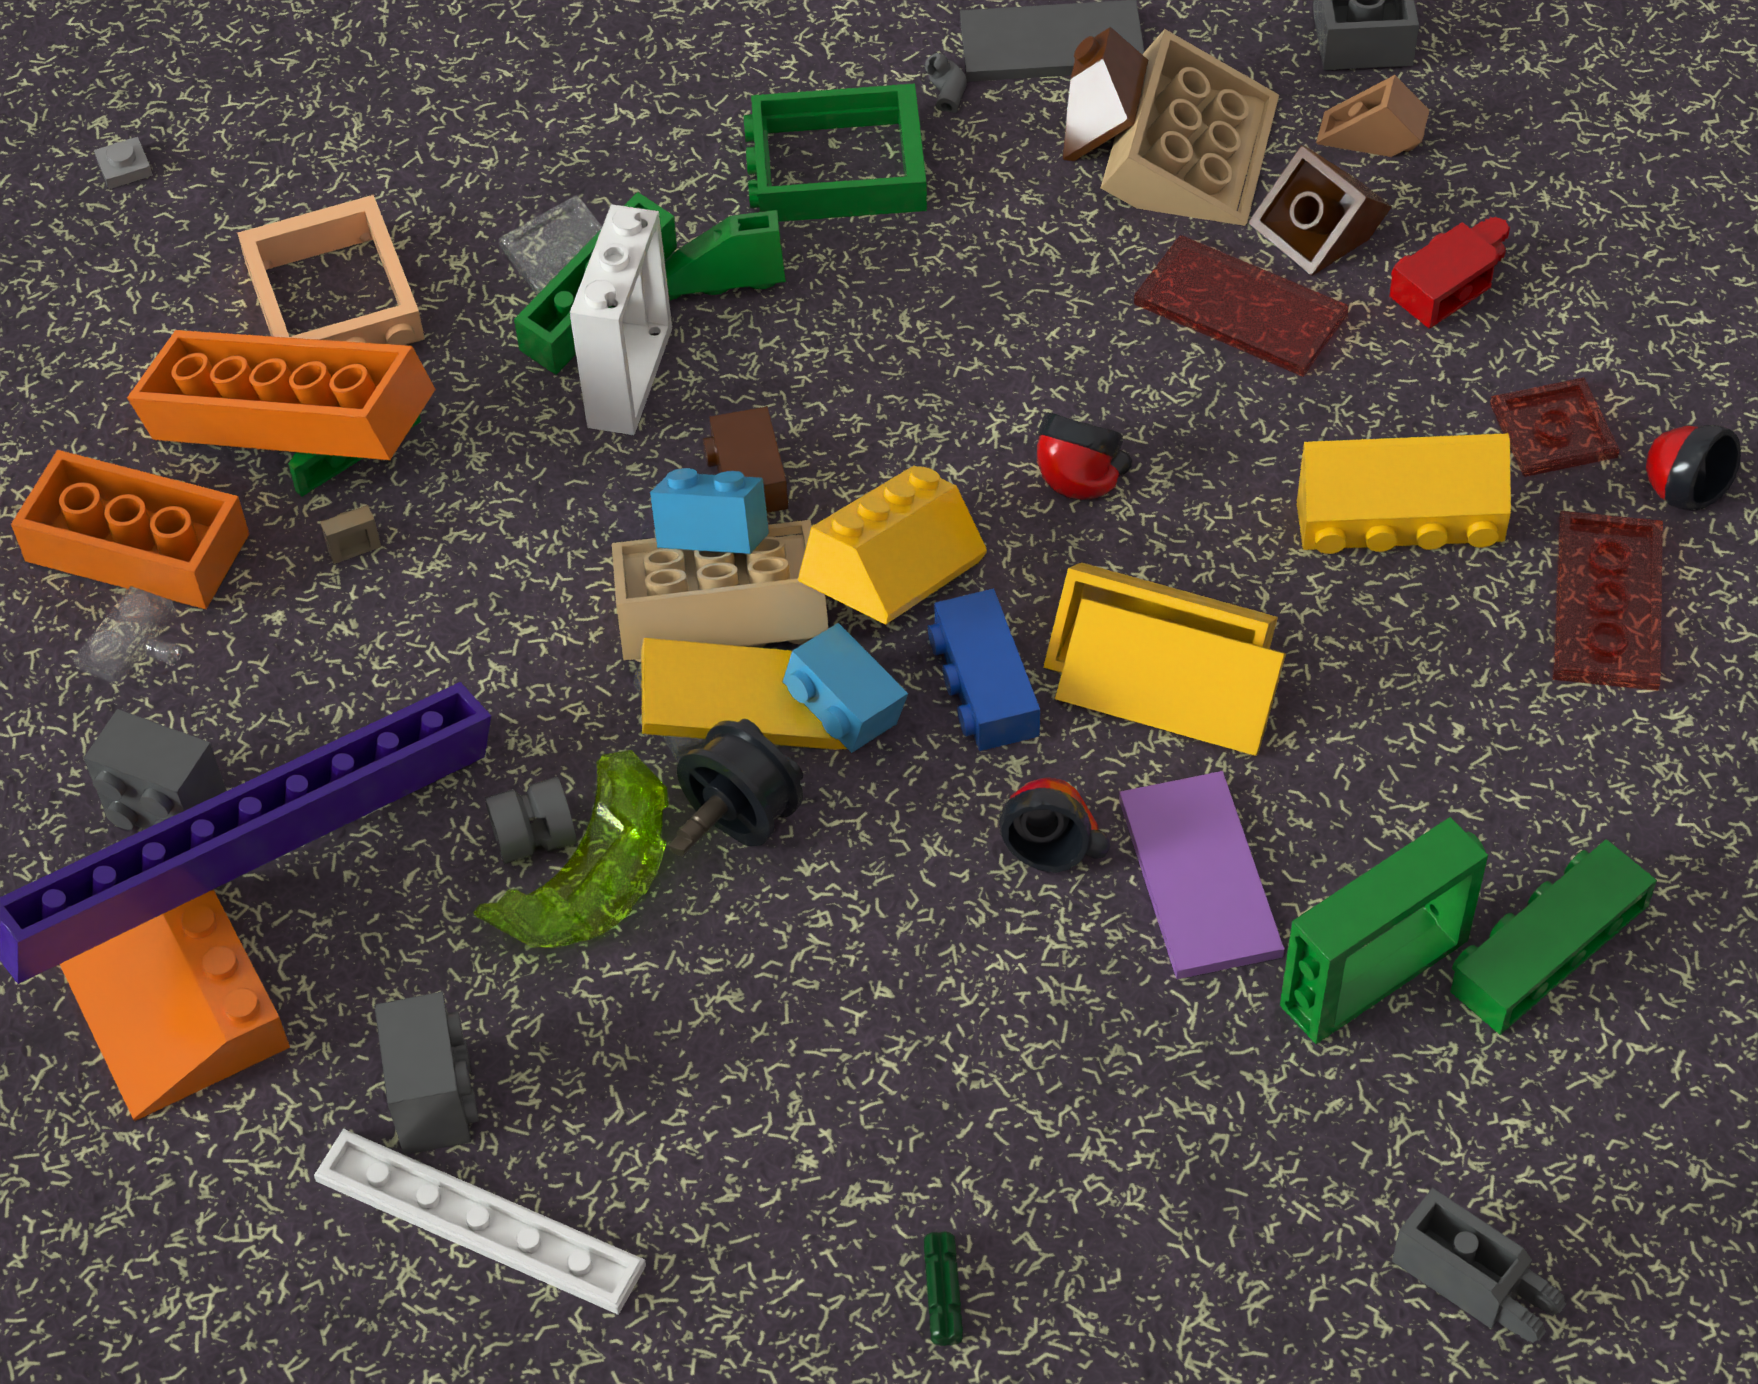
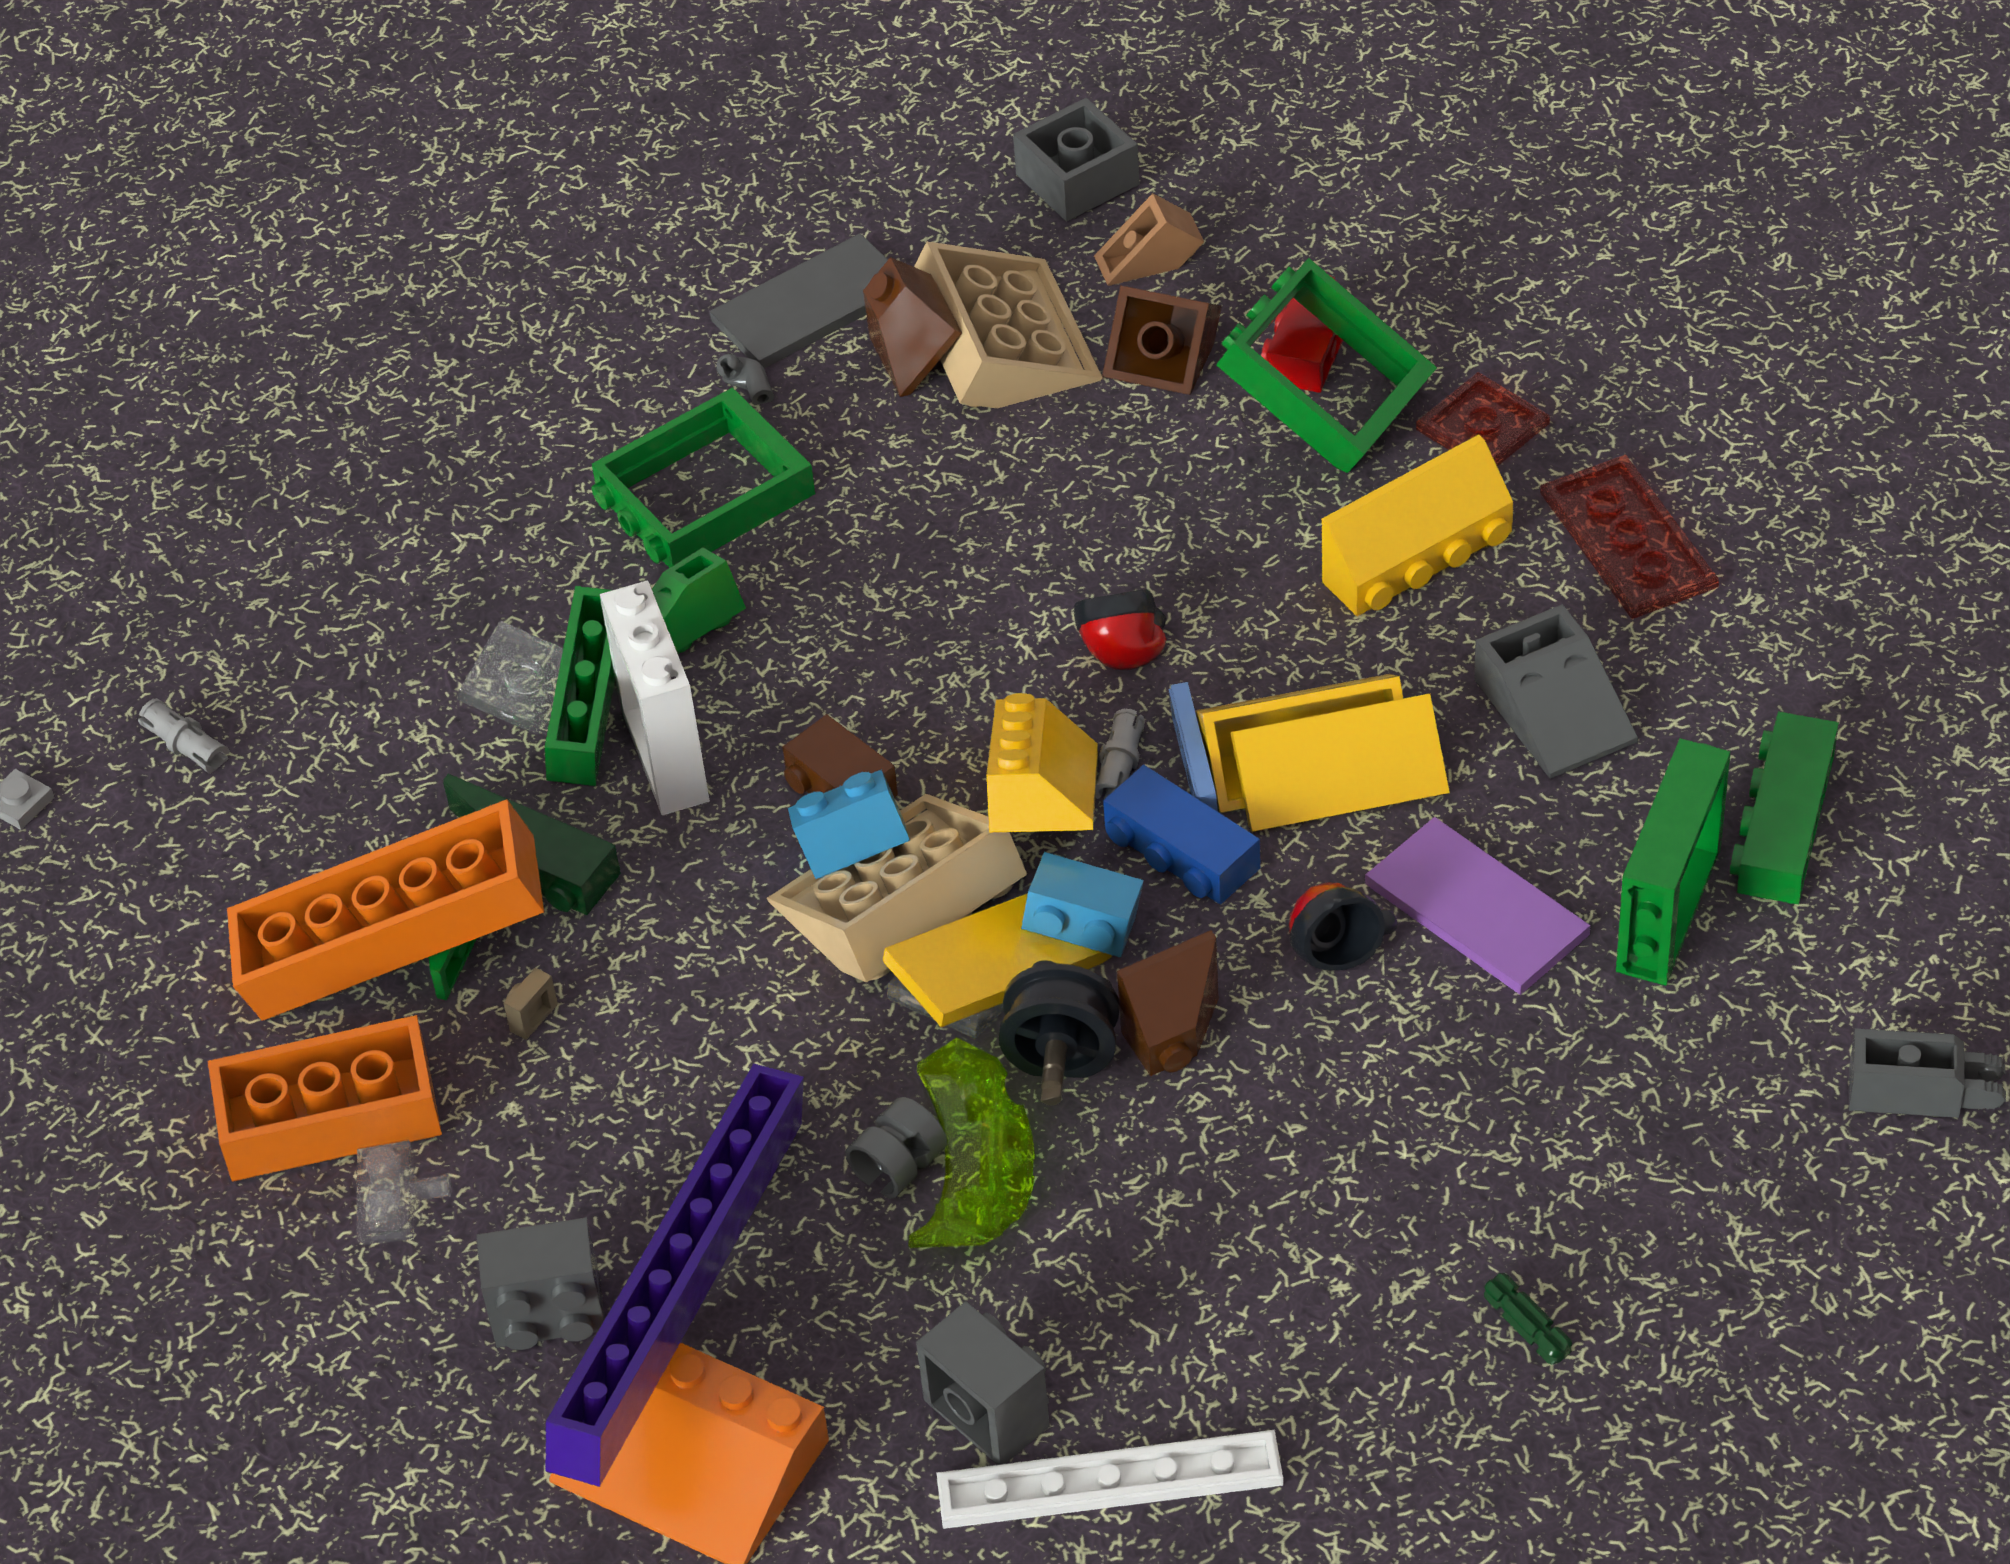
camera: 30 degrees left, 5 degrees down
(278, 171) = (183, 735): none -> light grey pin
(322, 233) = (283, 759): light nougat window -> none
(469, 423) = (571, 862): none -> dark green slope
(850, 818) = (1169, 1003): none -> reddish brown slope
(996, 567) = (1120, 751): none -> light grey pin
(1037, 631) = (1191, 745): none -> medium blue tile
(1241, 305) = (1152, 445): clear red tile -> none
(1416, 711) = (1553, 691): none -> dark grey slope
(1486, 278) = (1356, 327): none -> green window
(1693, 465) = (1620, 397): black piece -> none

